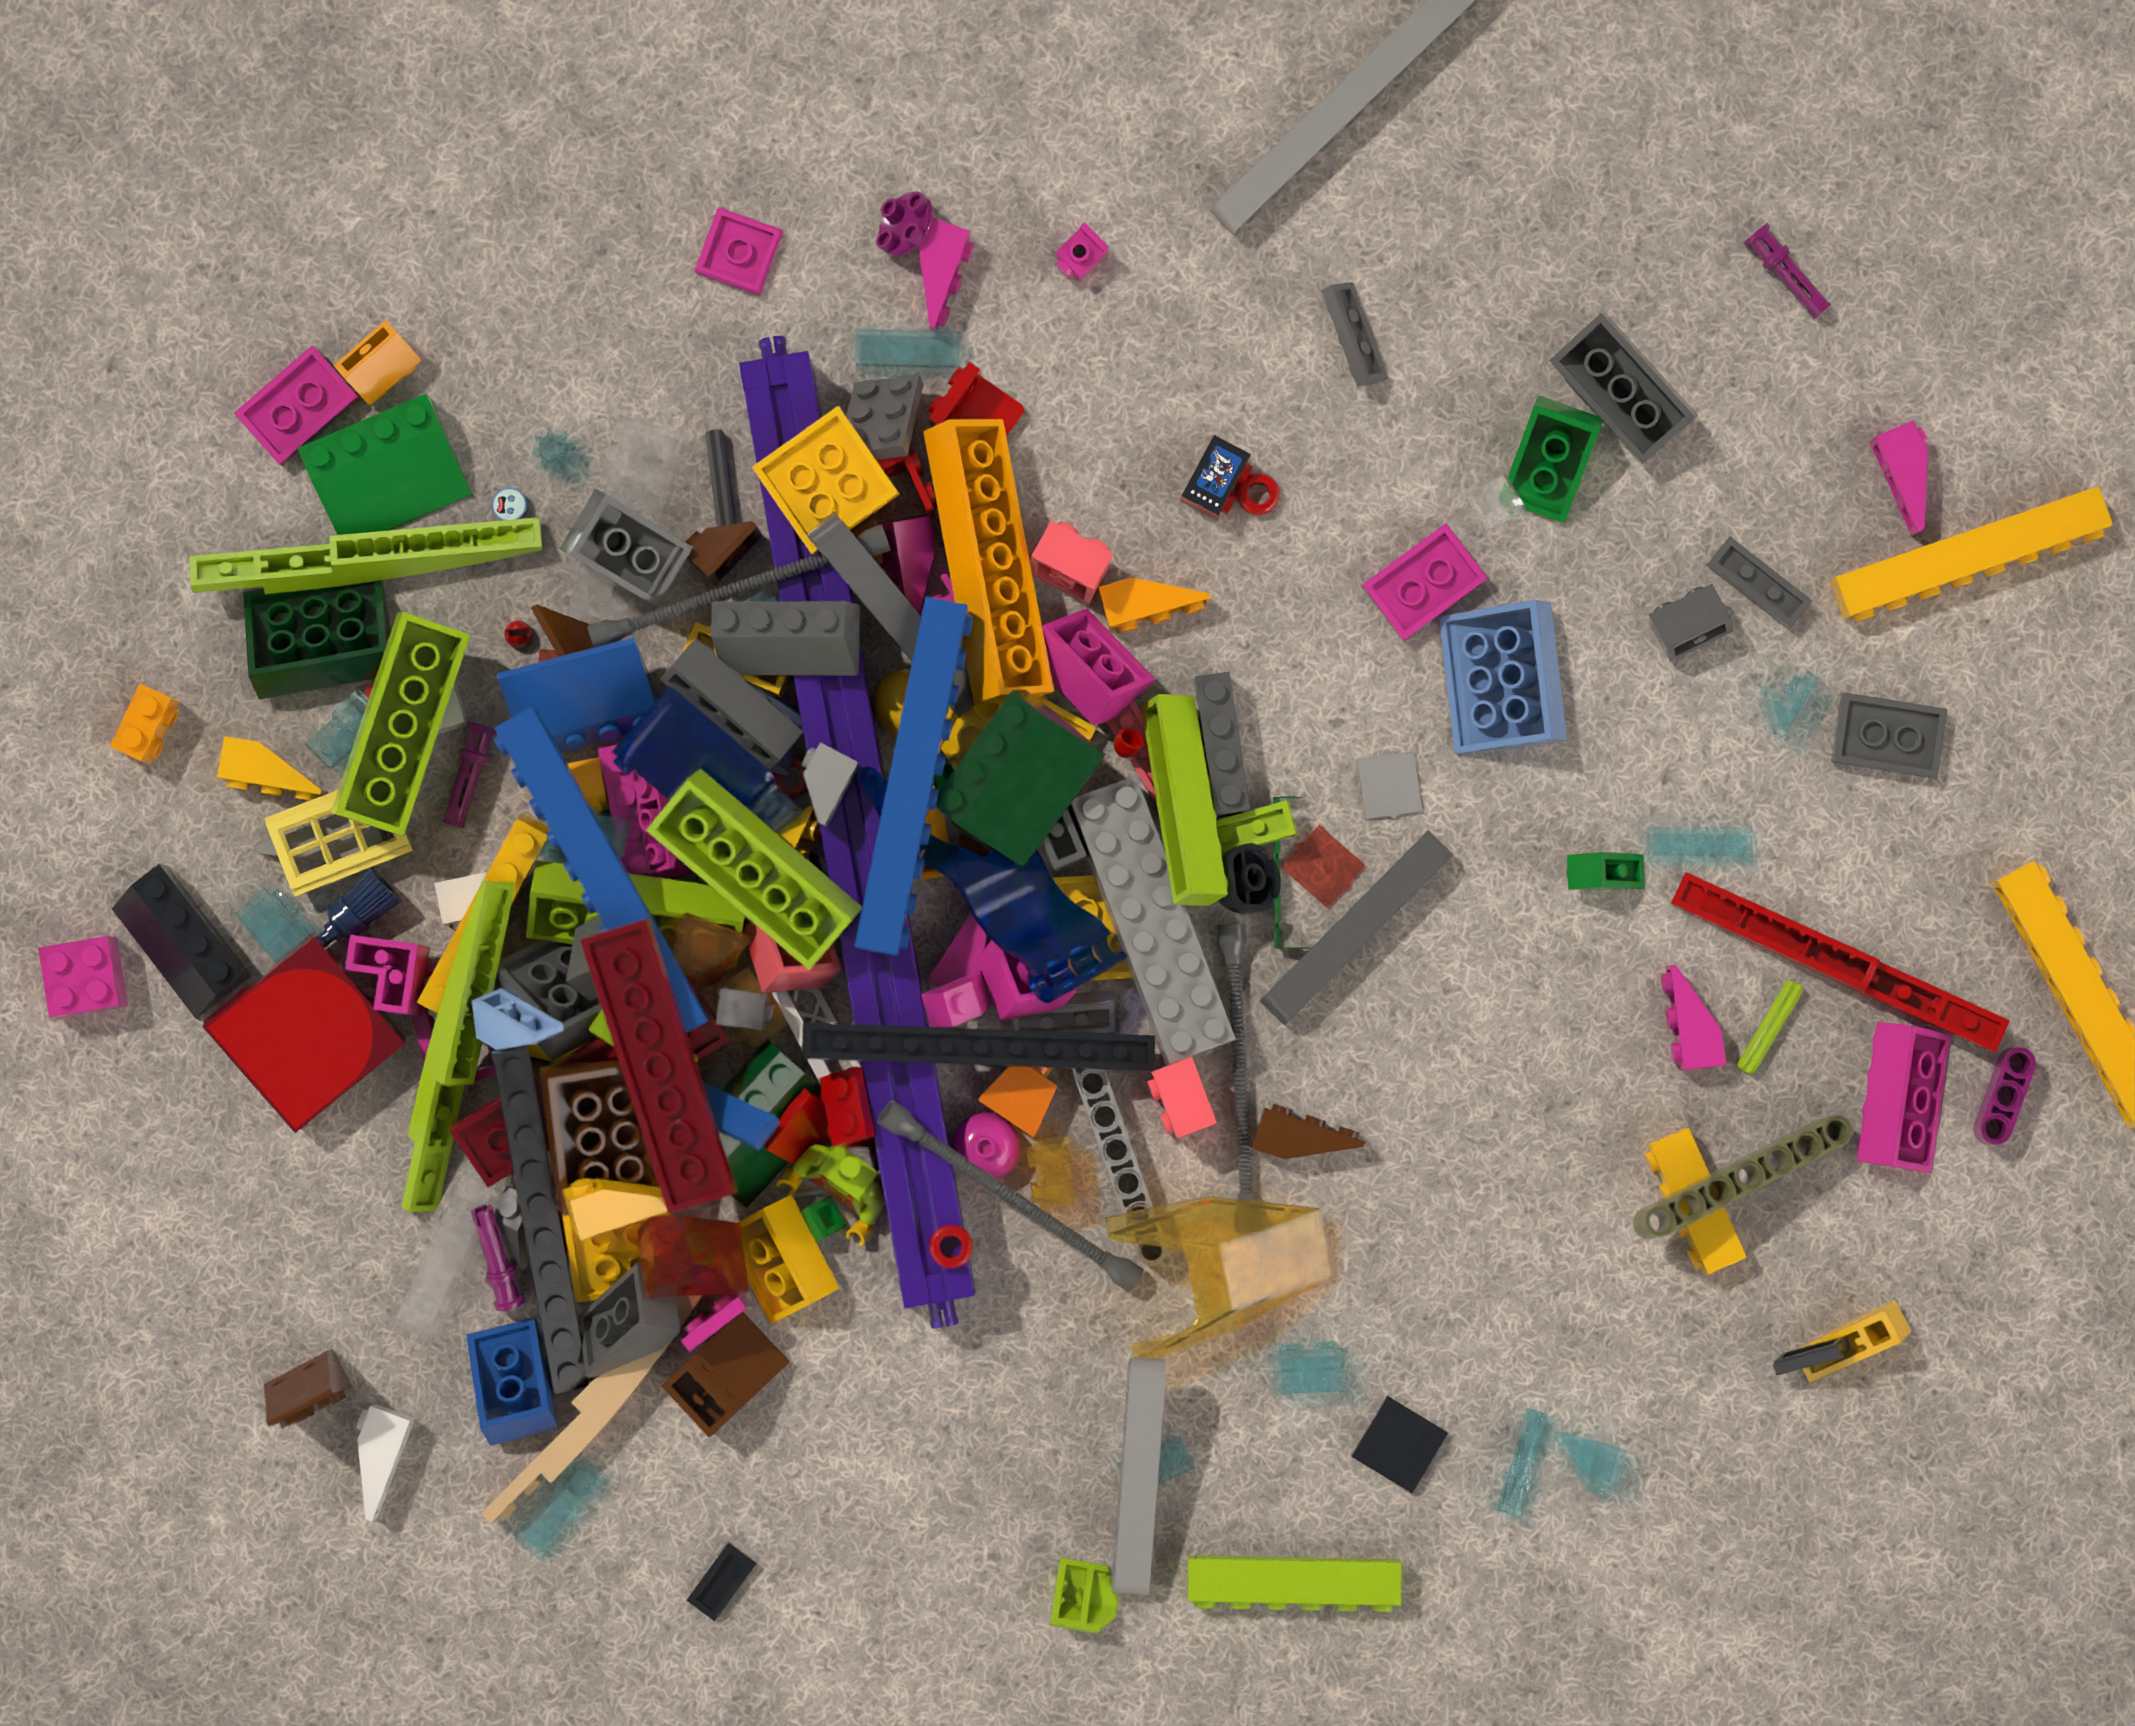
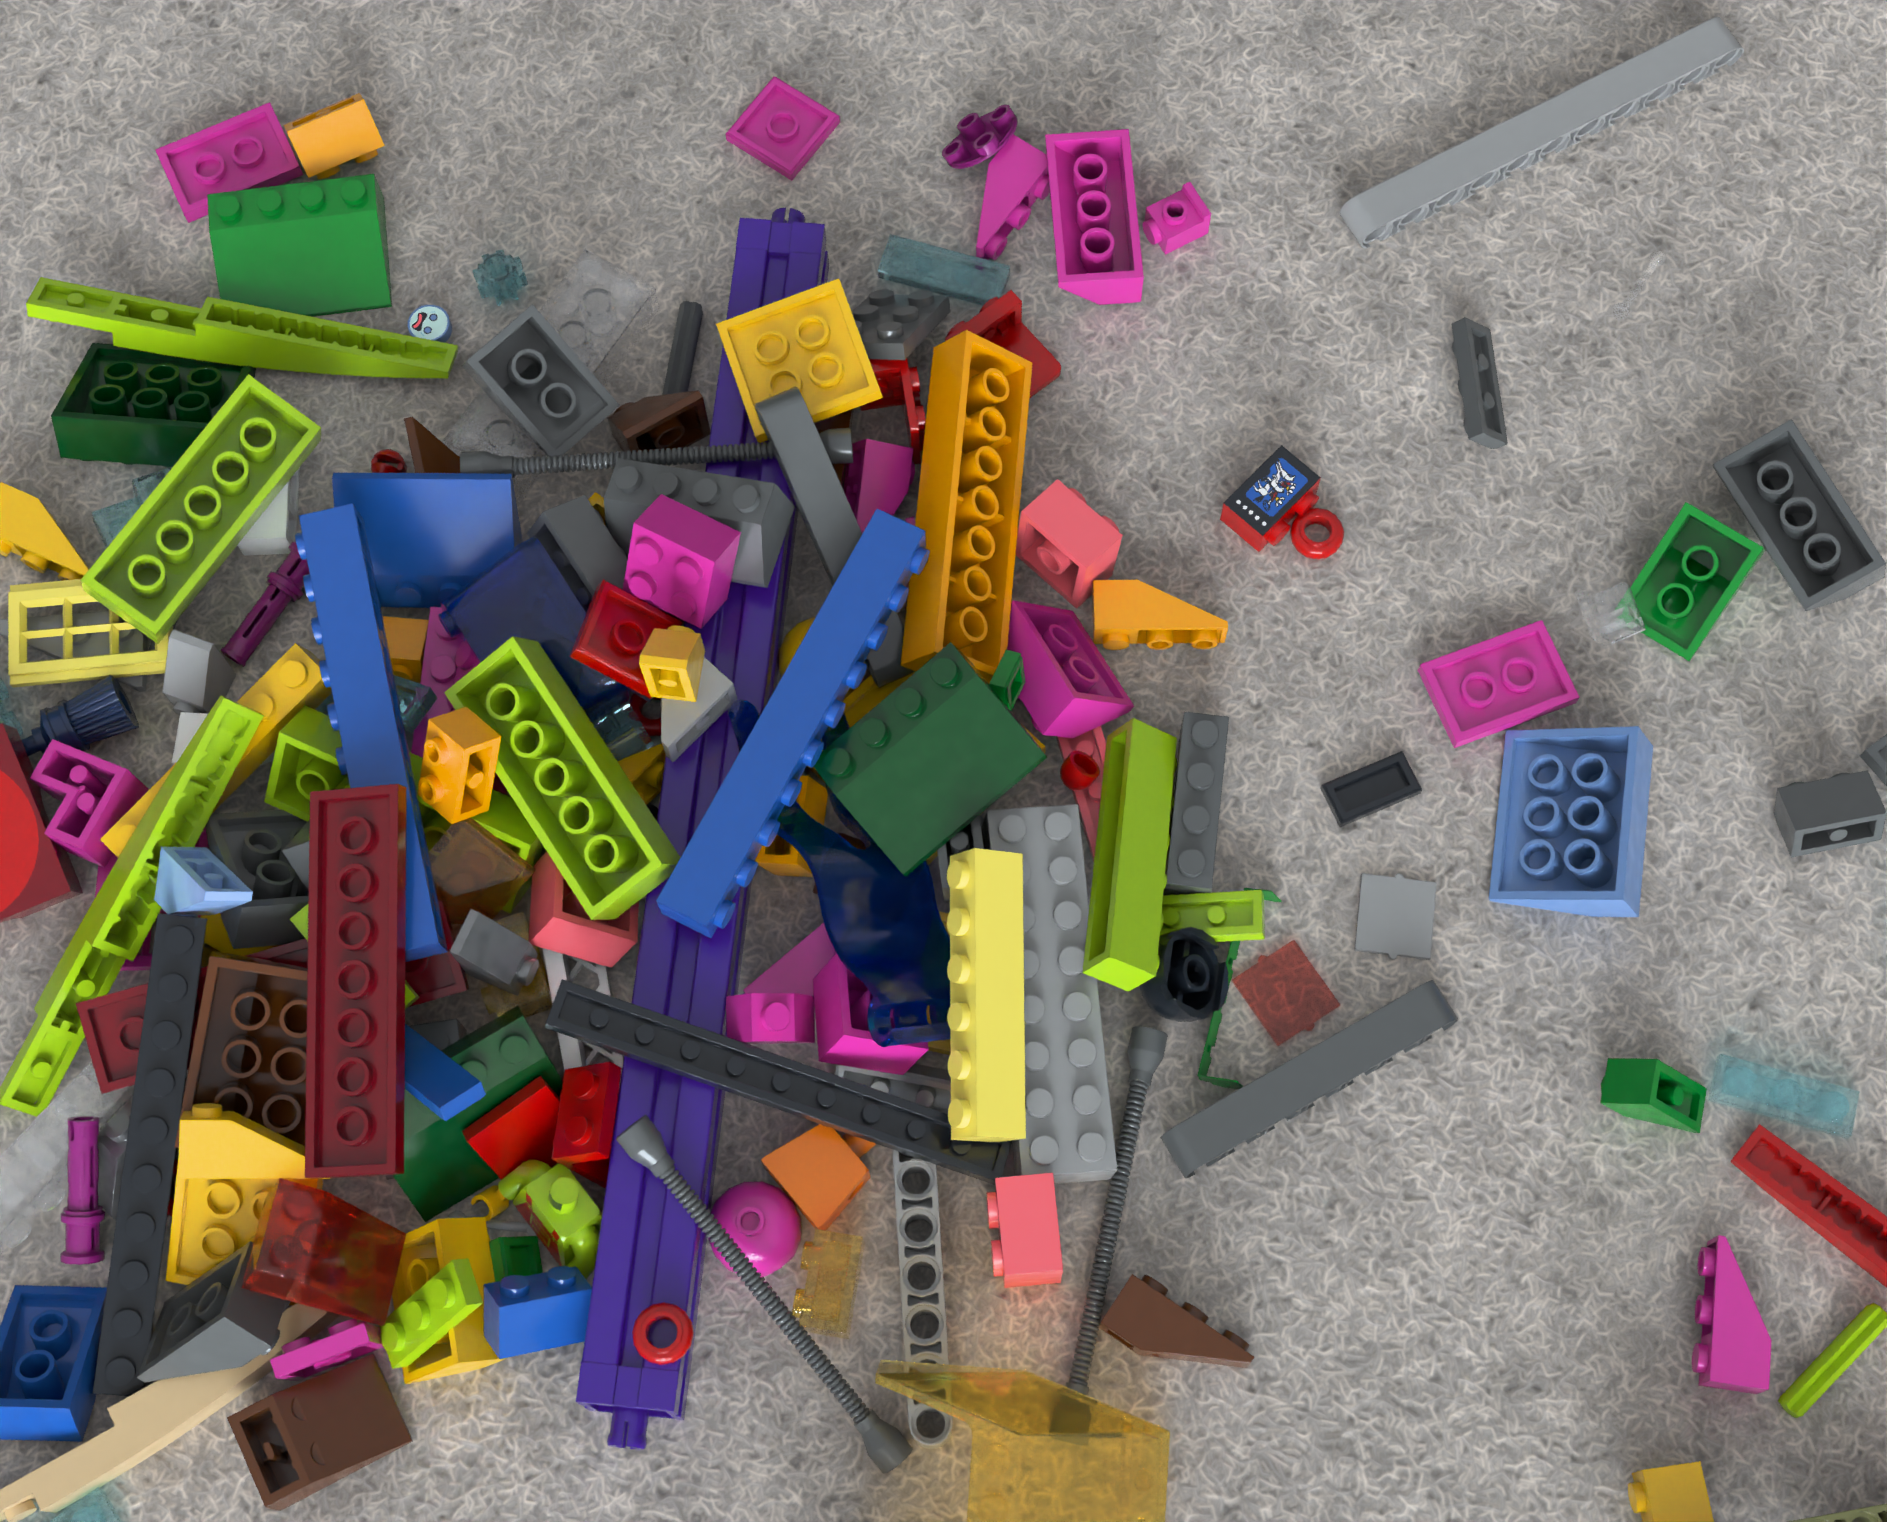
camera: 15 degrees right, 15 degrees down
(435, 853) = (195, 674): none -> light grey slope
(675, 882) = (459, 765): none -> light orange brick
(766, 747) = (616, 634): none -> red tile
(779, 1274) = (430, 1313): none -> lime plate
(789, 677) = (681, 561): none -> dark pink brick
(812, 762) = (673, 663): none -> yellow slope
(854, 1252) = (536, 1311): none -> blue brick
(1016, 272) = (1095, 215): none -> dark pink slope
(1058, 694) = (1009, 678): none -> green tile
(1110, 943) = (986, 996): none -> light yellow brick
(1348, 691) = (1371, 789): none -> black tile

